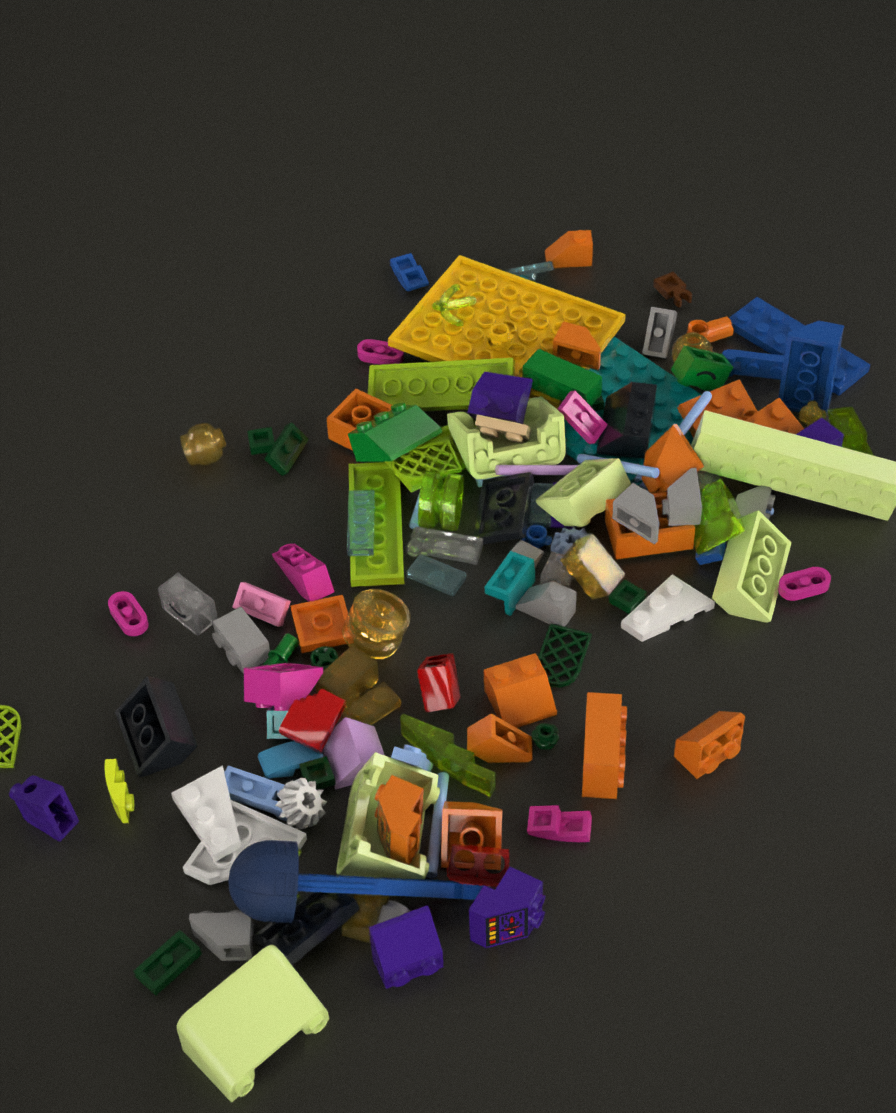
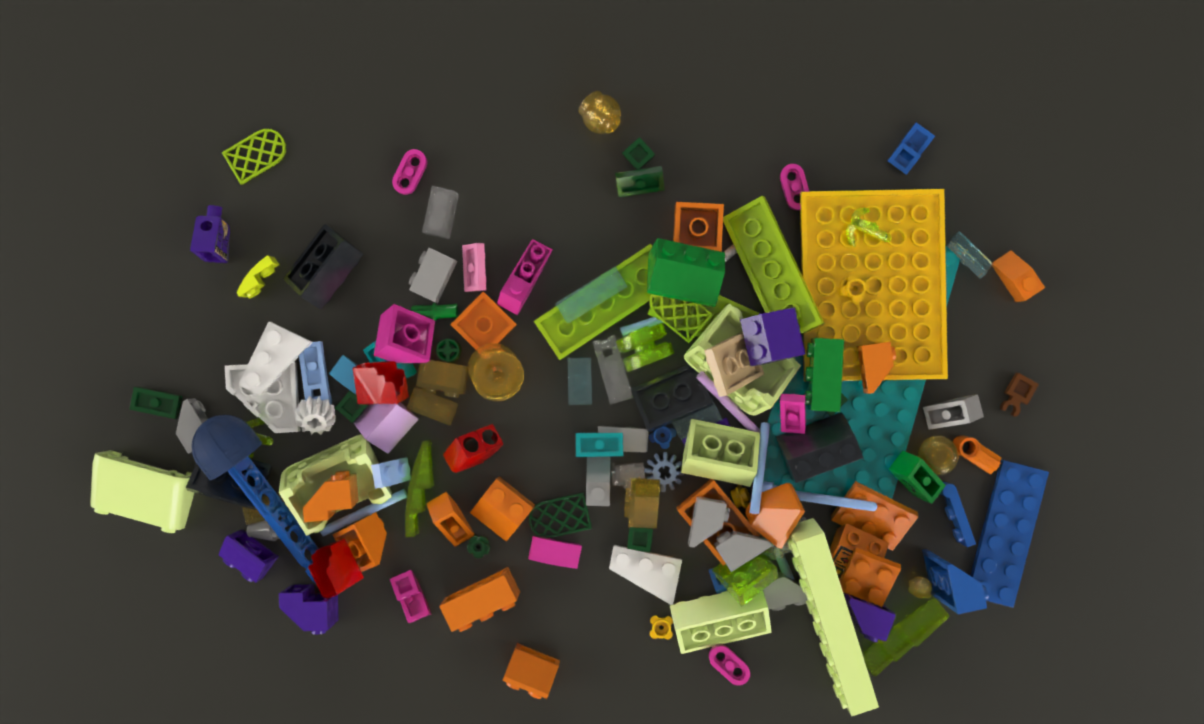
camera: 60 degrees right, 40 degrees up
(595, 671) = (555, 552): none -> dark pink slope
(732, 621) = (661, 633): none -> yellow plate

